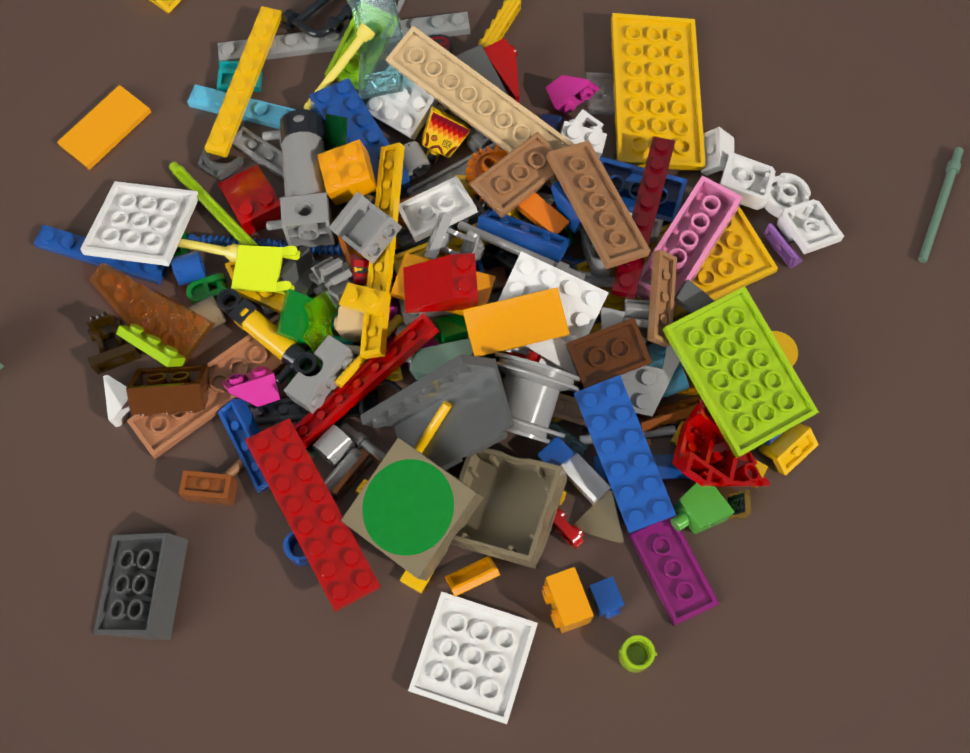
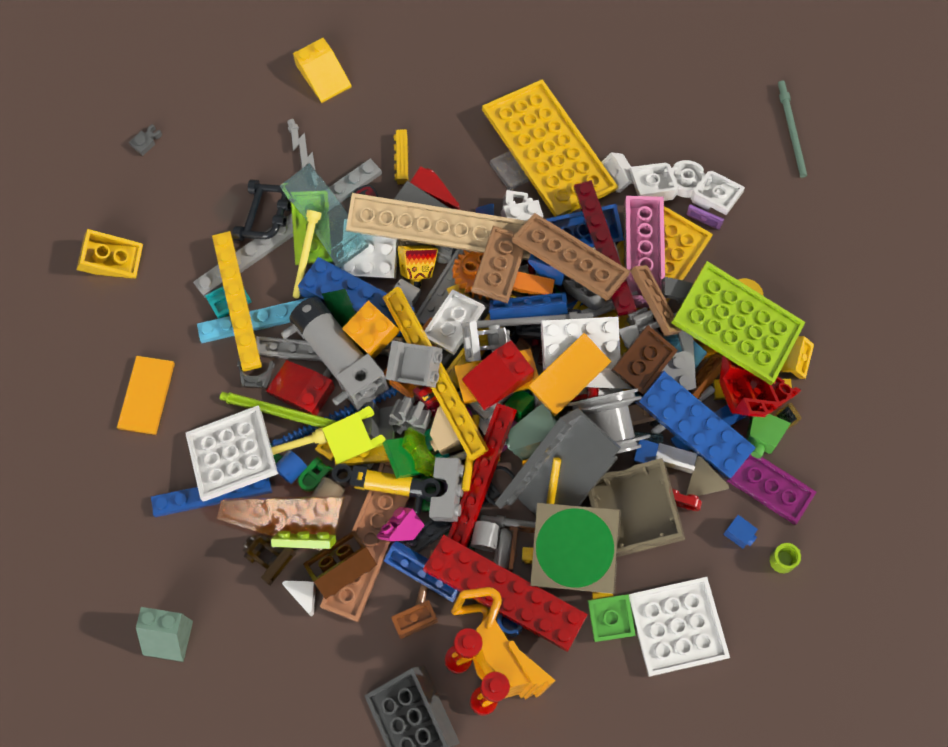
camera: 30 degrees left, 0 degrees up
(247, 555) = (497, 661): none -> light orange piece
(364, 299) = (448, 417): yellow plate -> none
(408, 605) = (611, 618): none -> bright green plate
(472, 575) = (641, 571): light orange tile -> none
(567, 600) = (718, 549): light orange brick -> none
(570, 91) = (488, 181): dark pink slope -> none

